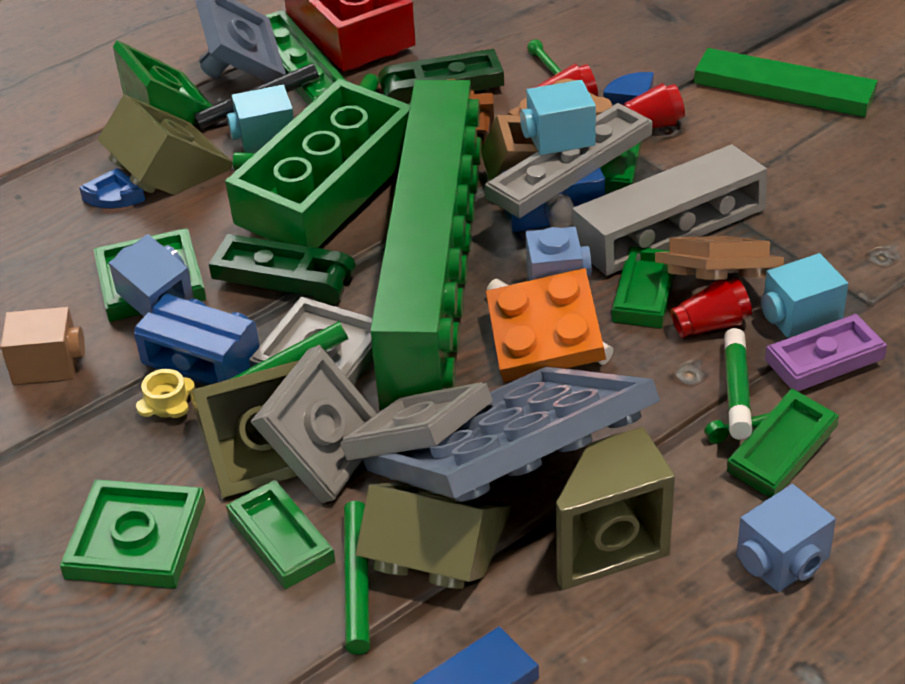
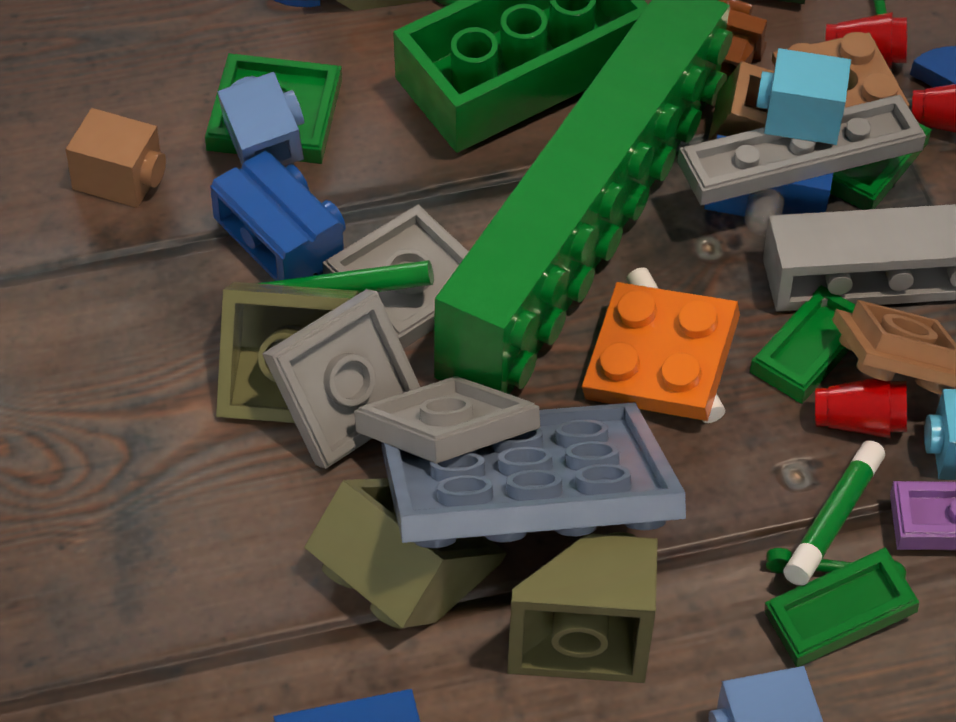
camera: 20 degrees right, 10 degrees up
(133, 533) = (108, 421): green tile -> none
(165, 394) = (214, 267): light yellow plate -> none
(280, 534) = (252, 485): green tile -> none
(283, 267) = (417, 158): dark green plate -> none
(356, 583) = (291, 587): green bar -> none
(555, 252) = (717, 268): medium blue brick -> none

